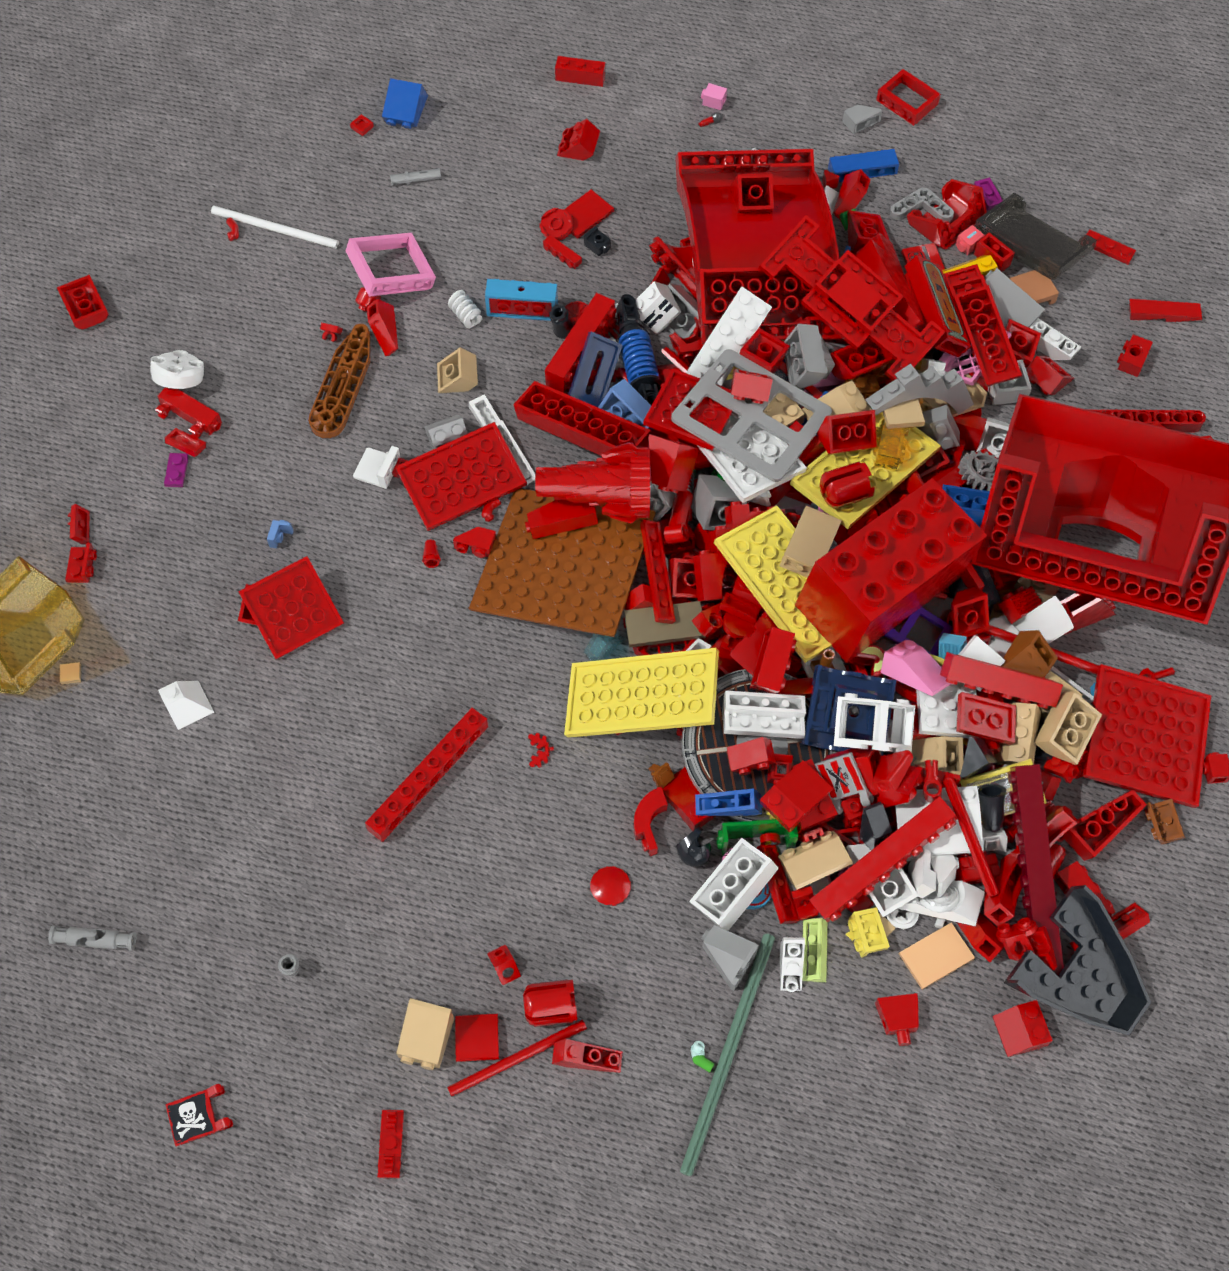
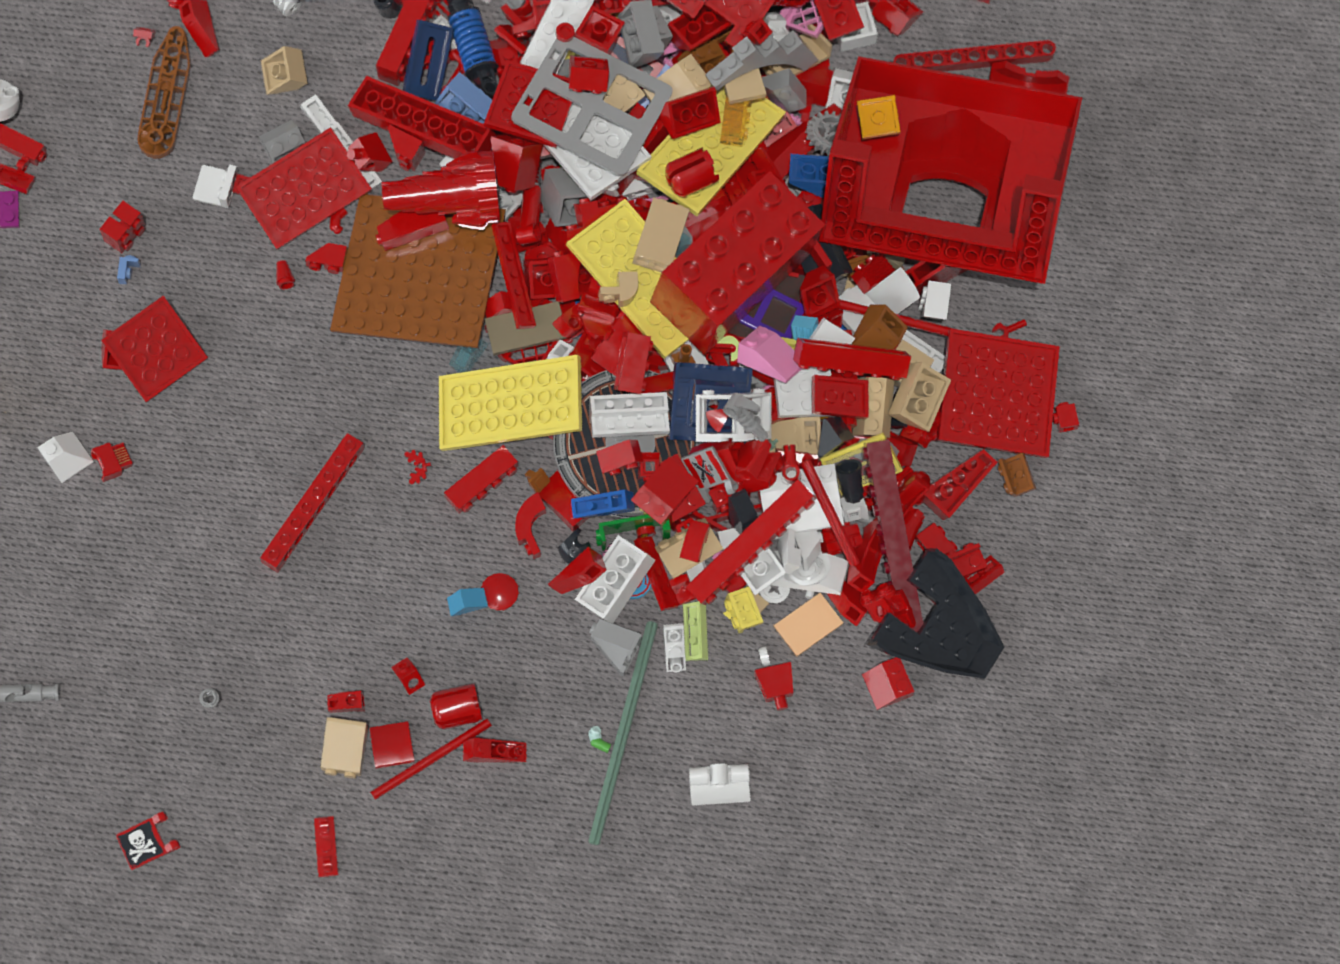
camera: 10 degrees left, 10 degrees up
(231, 711) = (111, 459): none -> red piece
(277, 500) = (121, 233): none -> red piece
(434, 985) = (346, 702): none -> red leg
(528, 450) = (369, 153): none -> red torso
(565, 446) = (407, 148): none -> red slope
(575, 891) = (467, 601): none -> dark azure slope
(604, 768) = (481, 479): none -> red brick
(697, 873) = (579, 572): none -> red slope
(731, 348) = (564, 32): none -> red tile
(769, 590) = (624, 292): none -> tan brick
(823, 851) = (694, 540): none -> red slope
(830, 1121) = (719, 784): none -> white panel
(858, 723) = (716, 418): none -> tile
(883, 714) = (741, 409): none -> light grey piece
(887, 984) = (764, 656): none -> white tile
(921, 362) = (757, 31): none -> red brick
(1040, 448) = (878, 117): none -> light orange tile
(1085, 637) = (935, 300): none -> white wedge
(1117, 902) = (969, 559): none -> red bracket

